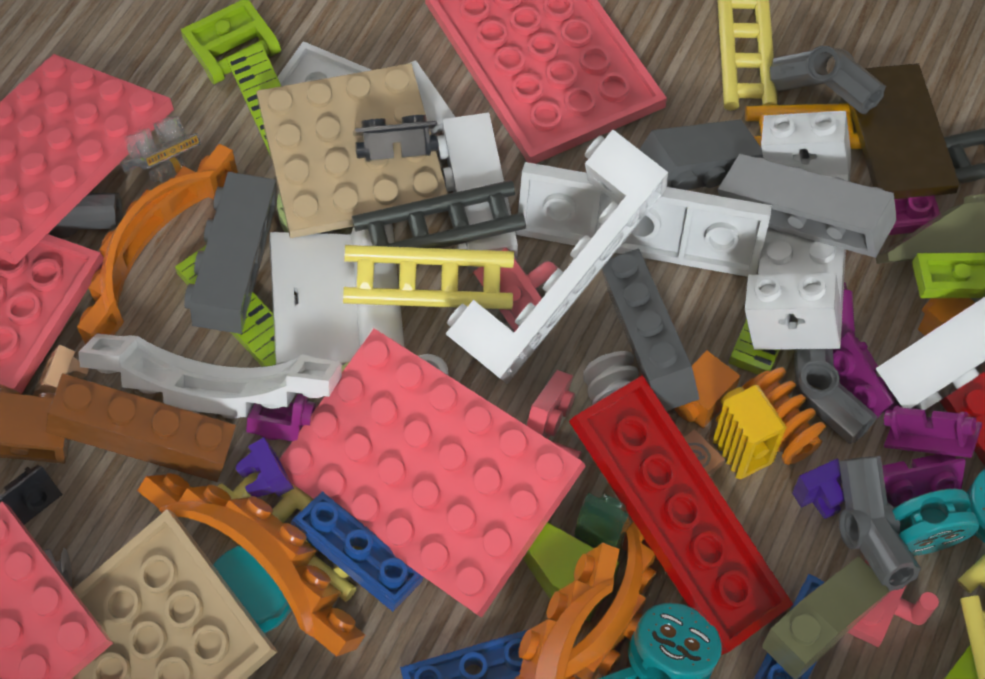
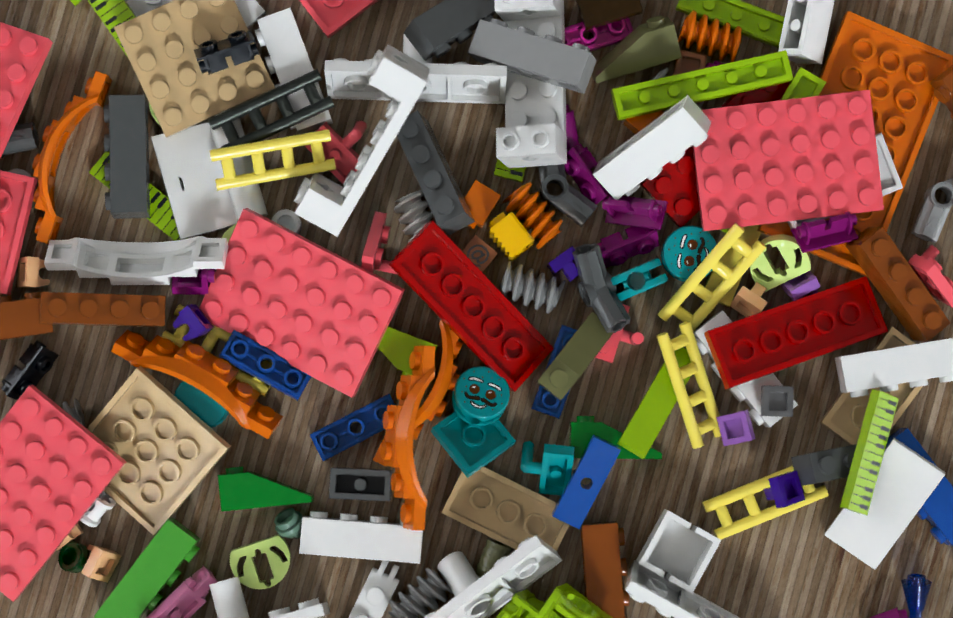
camera: 15 degrees left, 25 degrees up
(162, 155) = (56, 82): clear hips -> none
(602, 521) = (423, 322): clear green slope -> none
(770, 511) = (531, 288): none -> light grey piece

